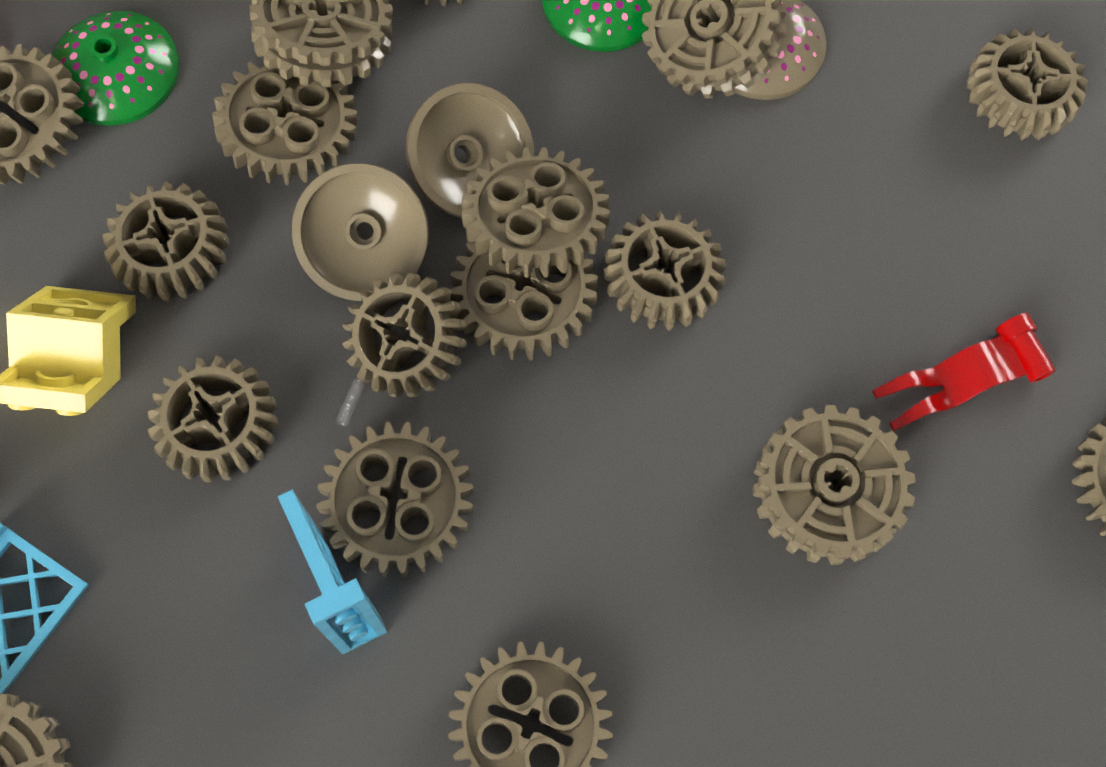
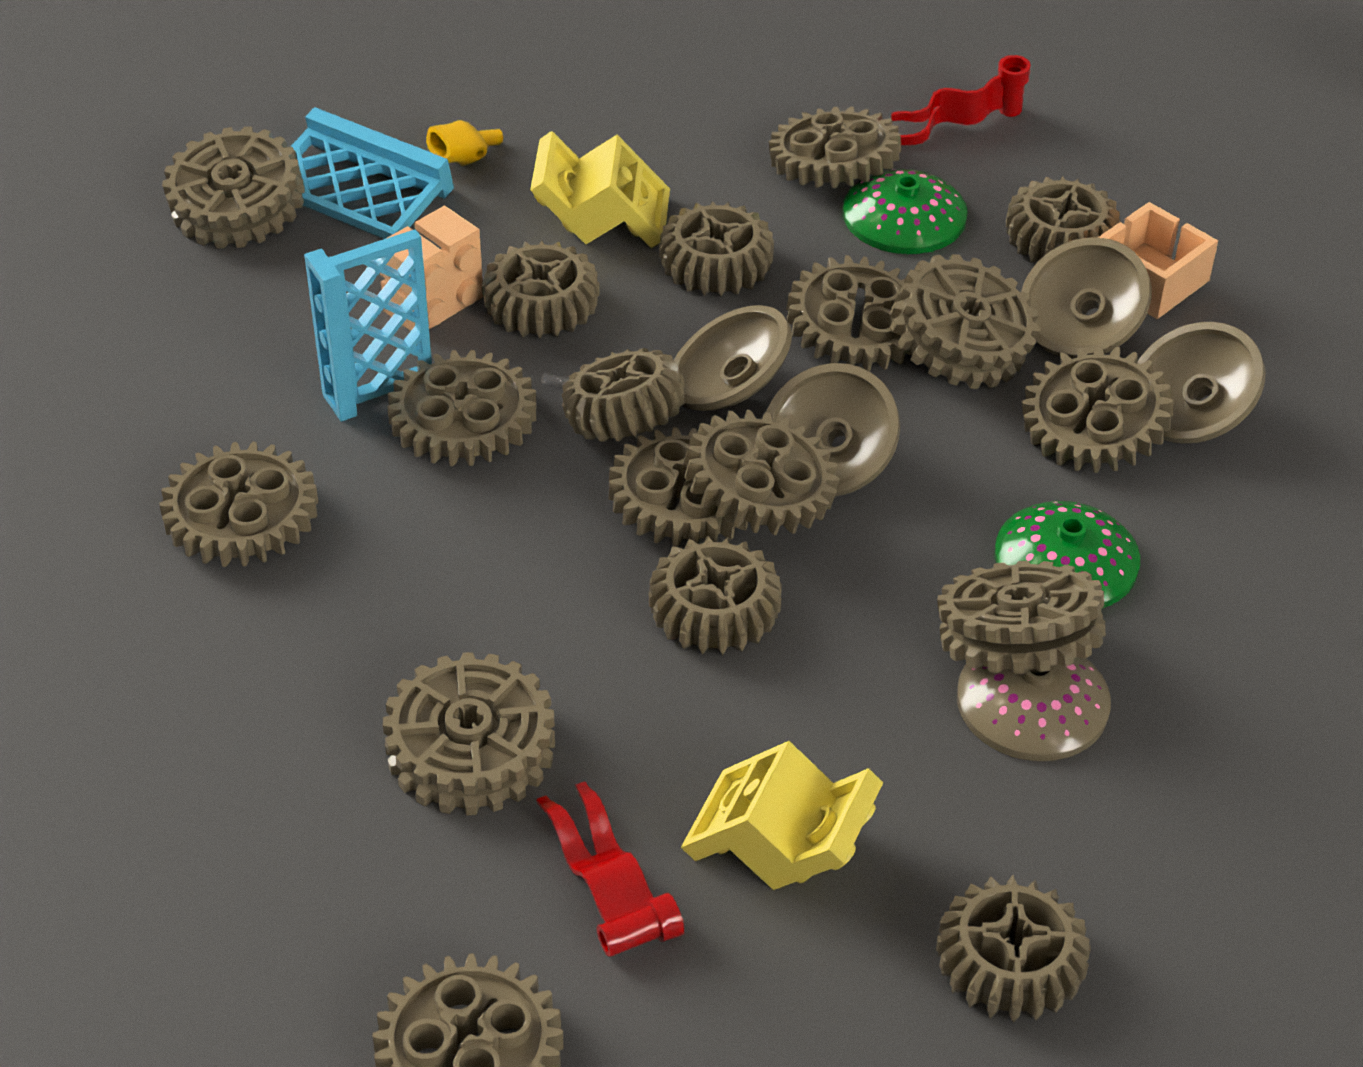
camera: 90 degrees right, 25 degrees down
(196, 535) = (451, 272): none -> light nougat piece
(931, 227) = (783, 816): none -> light yellow bracket

